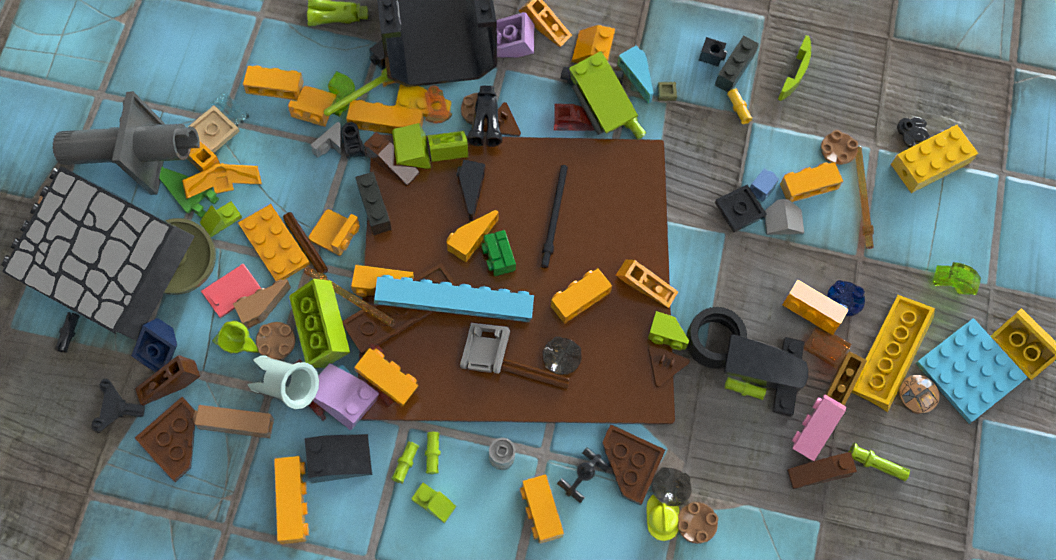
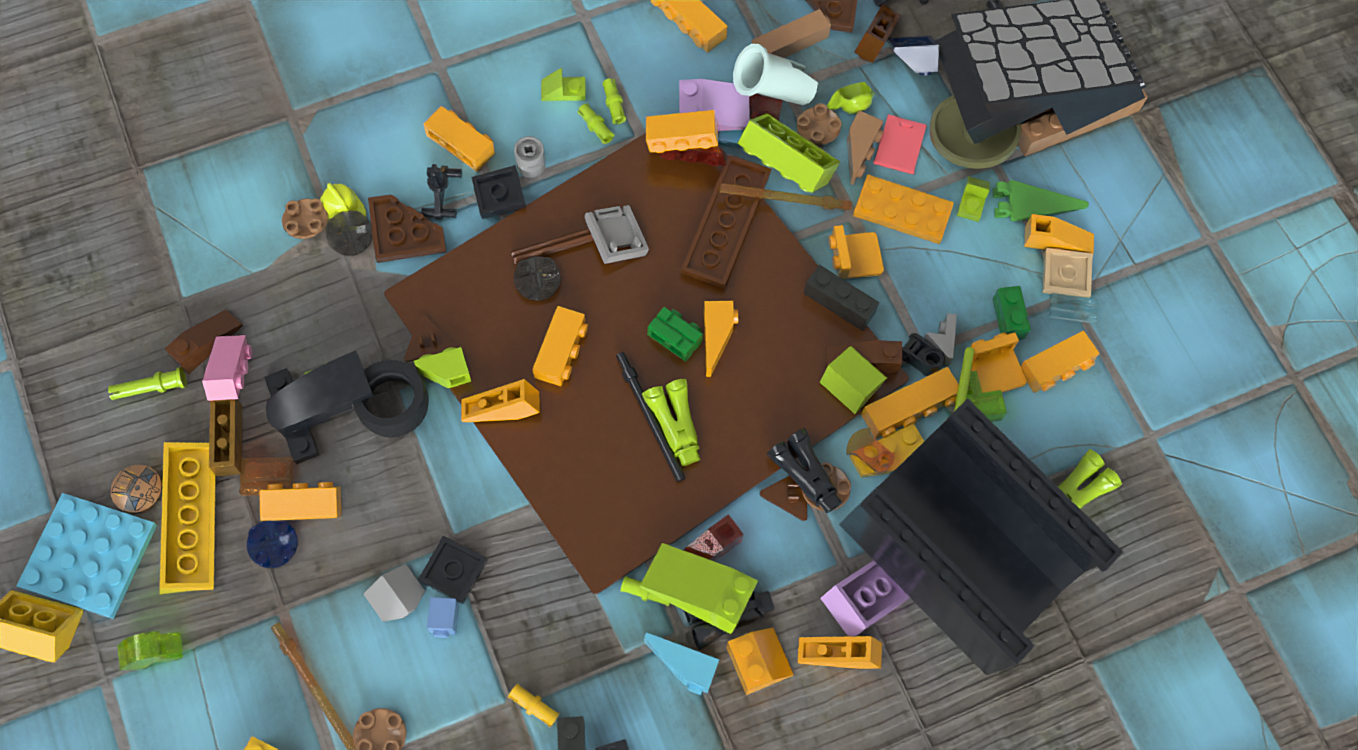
camera: 145 degrees right, 0 degrees up
(135, 146) = (1116, 188): dark grey piece -> none
(221, 178) = (1006, 228): light orange plate -> none
(274, 127) = (1011, 311): none -> green brick
(305, 243) = (868, 225): reddish brown axle -> none
(337, 457) = (678, 59): black slope -> none
(365, 278) = (775, 226): light orange slope -> none
(448, 146) = (822, 413): lime slope -> none
(454, 299) = (680, 251): medium azure brick -> none
(471, 179) = (762, 386): black slope -> none
(543, 443) = (498, 192): none -> black plate
(544, 191) = (680, 433): none -> lime piece
(587, 109) = (703, 554): pearl dark grey bar -> none
(667, 91) = (634, 667): olive tile -> none
(811, 182) = (388, 659): light orange brick -> none

